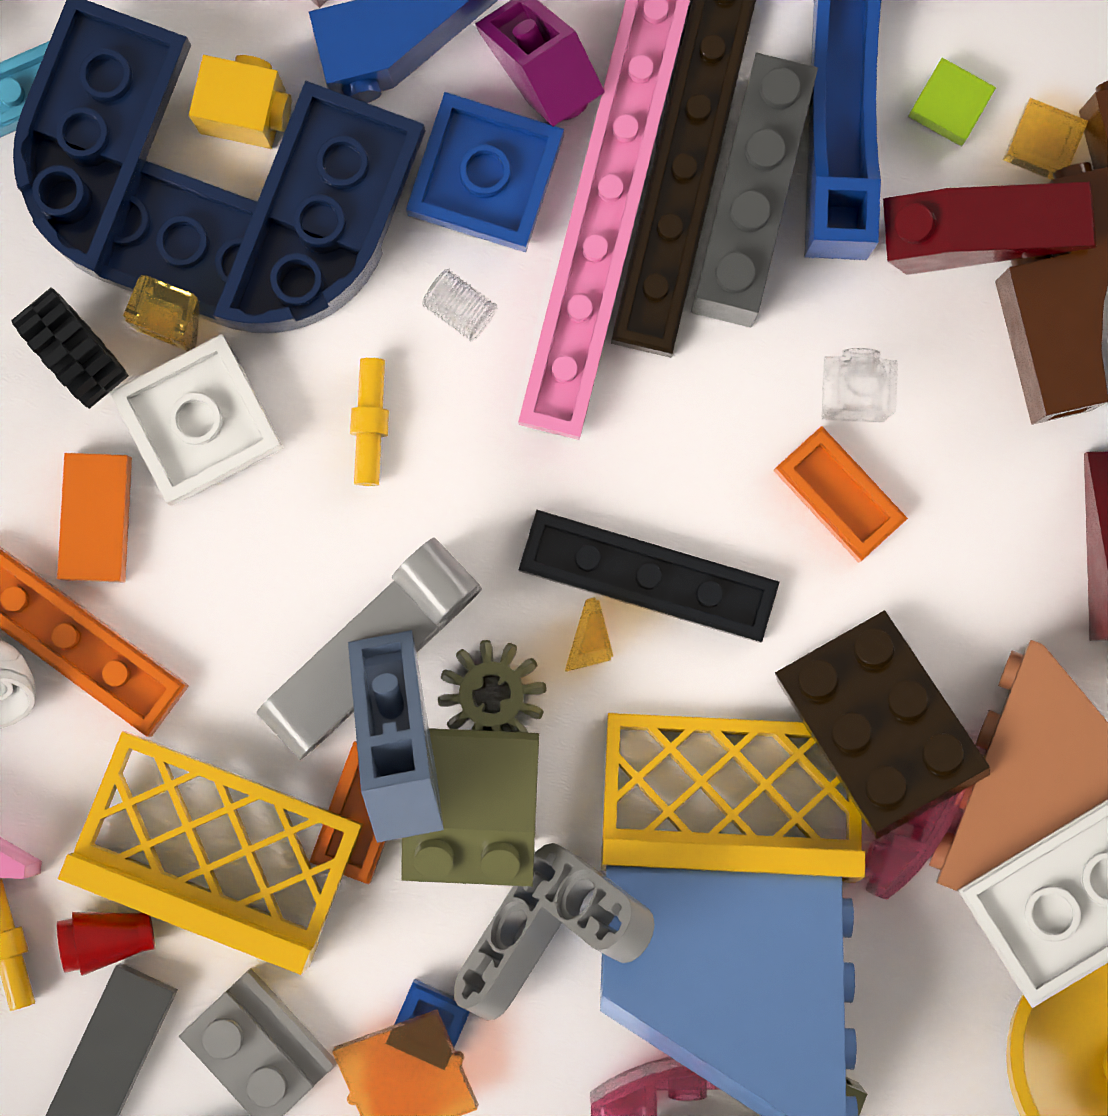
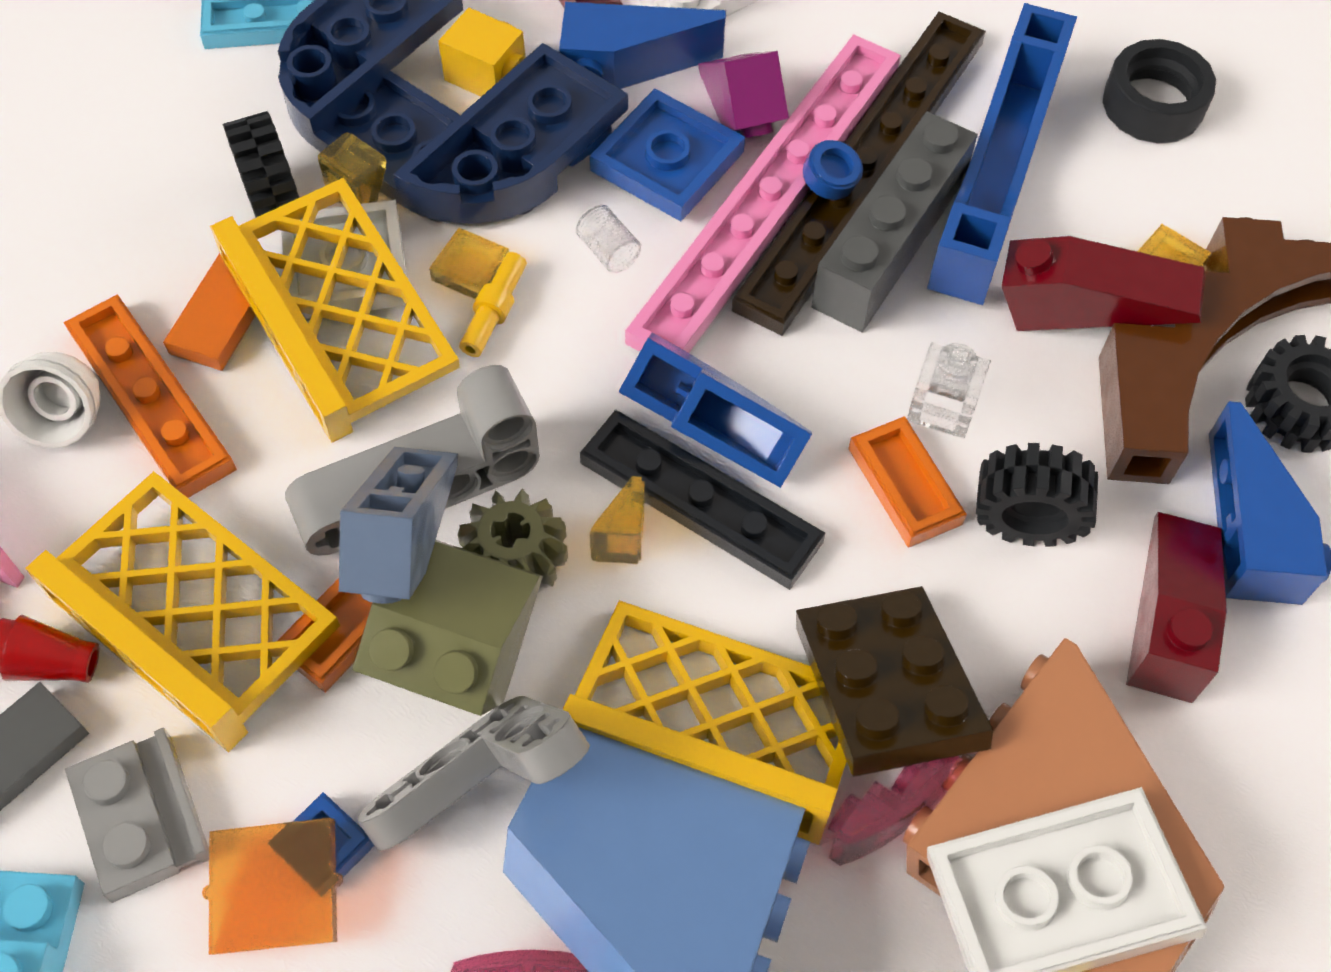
camera: 15 degrees right, 25 degrees down
(175, 527) = (297, 340): none -> yellow fence
(325, 377) = (467, 263): none -> clear yellow tile
(633, 486) = (715, 410): none -> blue slope
(671, 148) = (832, 169): none -> blue tile
(952, 102) = (1090, 211): lime tile -> none
(973, 492) = (1037, 495): none -> black tyre

